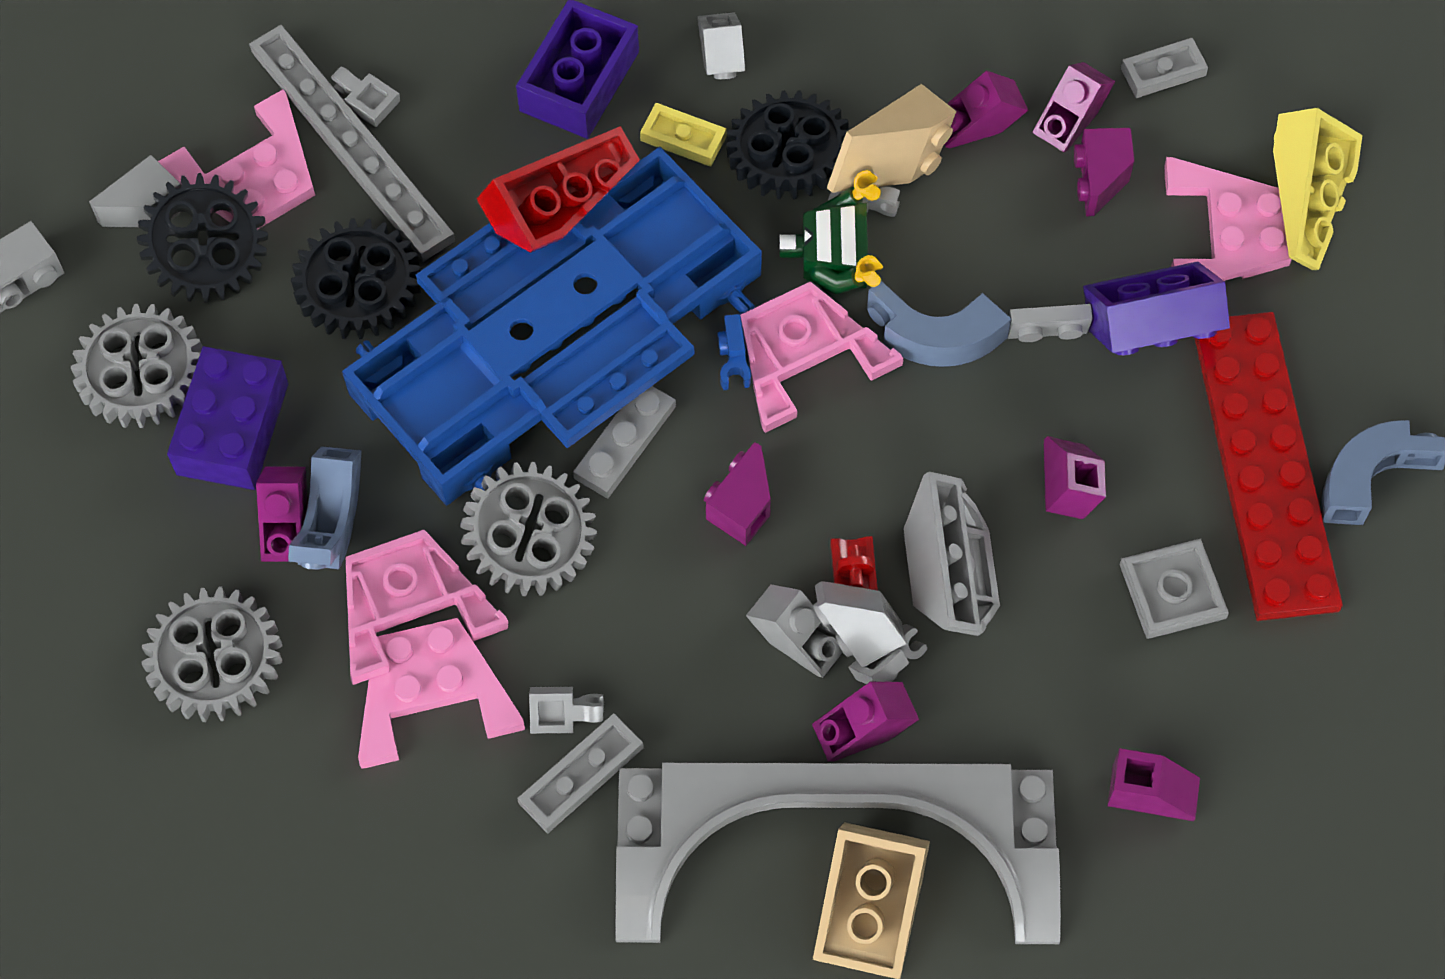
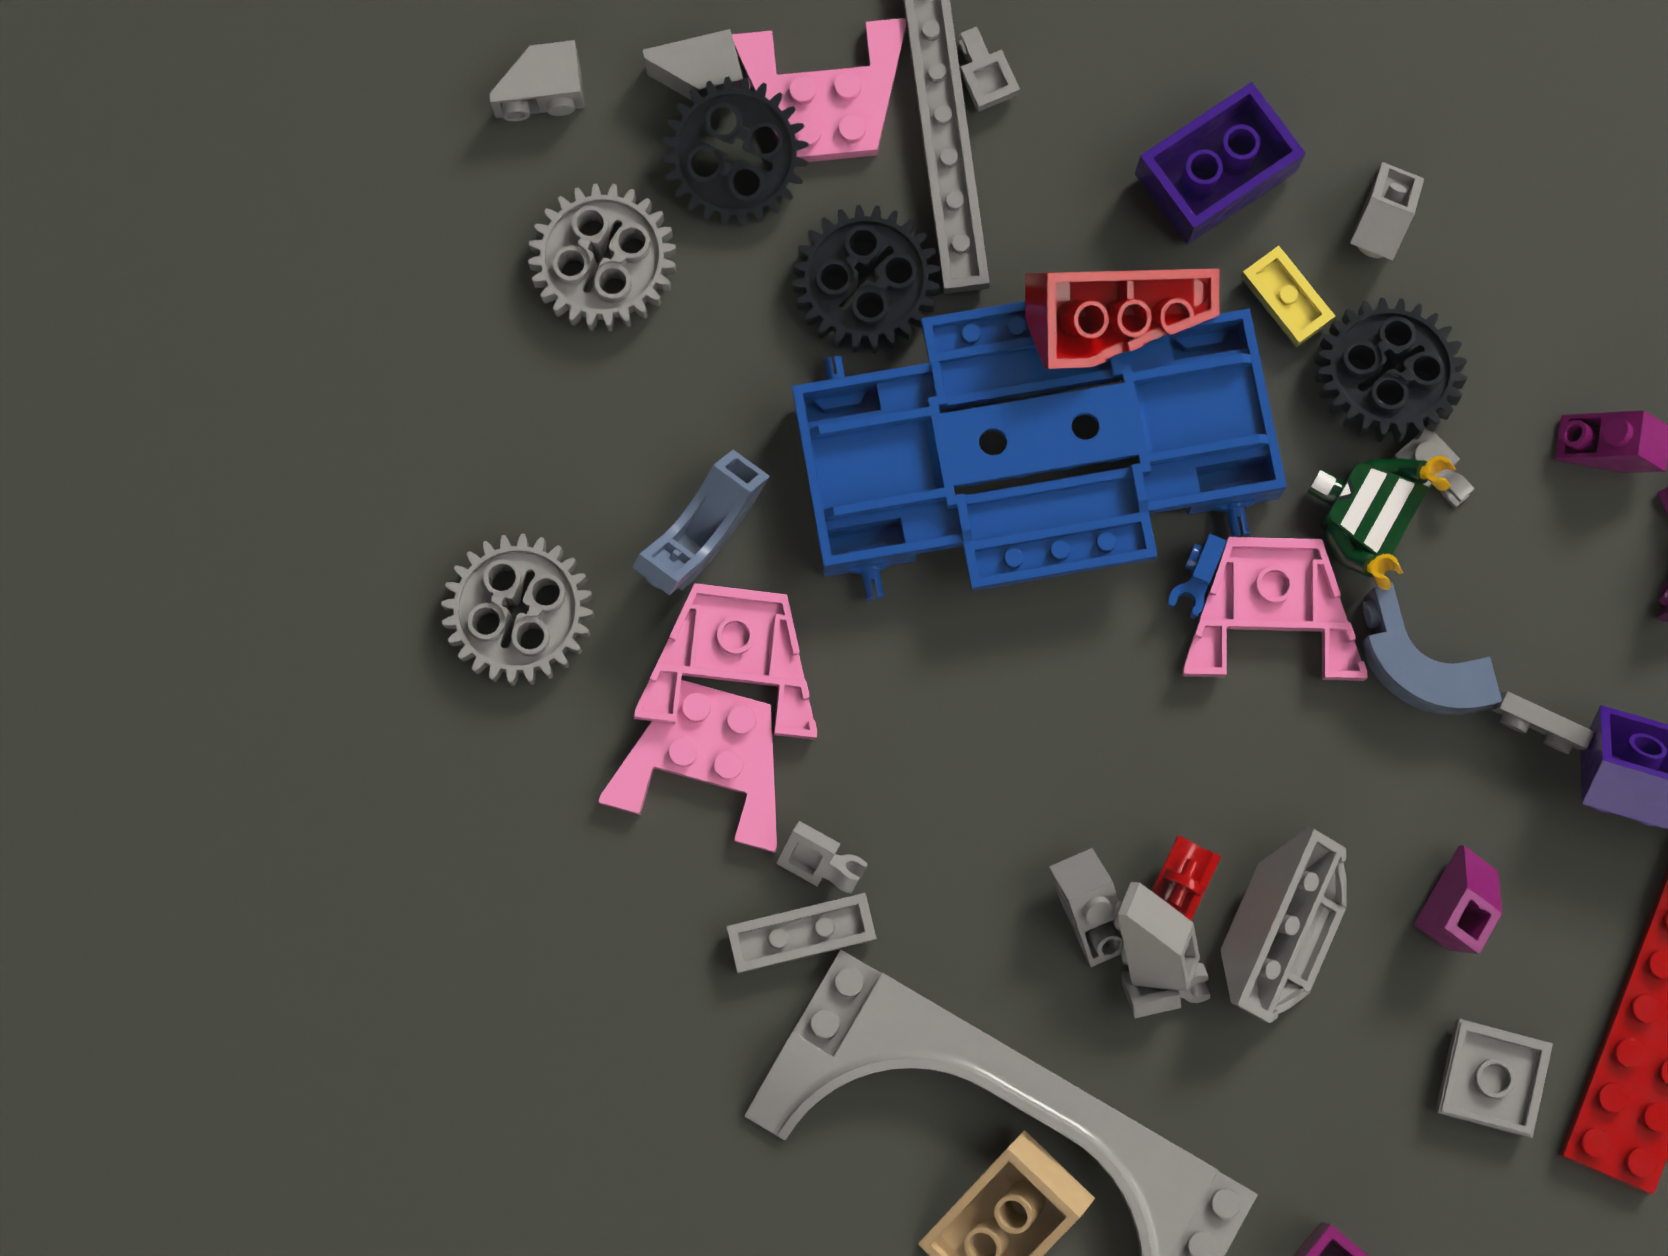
camera: 30 degrees right, 15 degrees up
(228, 418) = (660, 365): dark purple brick -> none
(281, 509) = (660, 494): magenta slope -> none
(493, 516) = (916, 683): light grey gear -> none
(624, 441) = (1034, 608): light grey plate -> none
(743, 498) = (1118, 738): magenta slope -> none
(865, 719) = (1104, 1039): magenta slope -> none
(896, 141) = (1501, 439): tan slope -> none

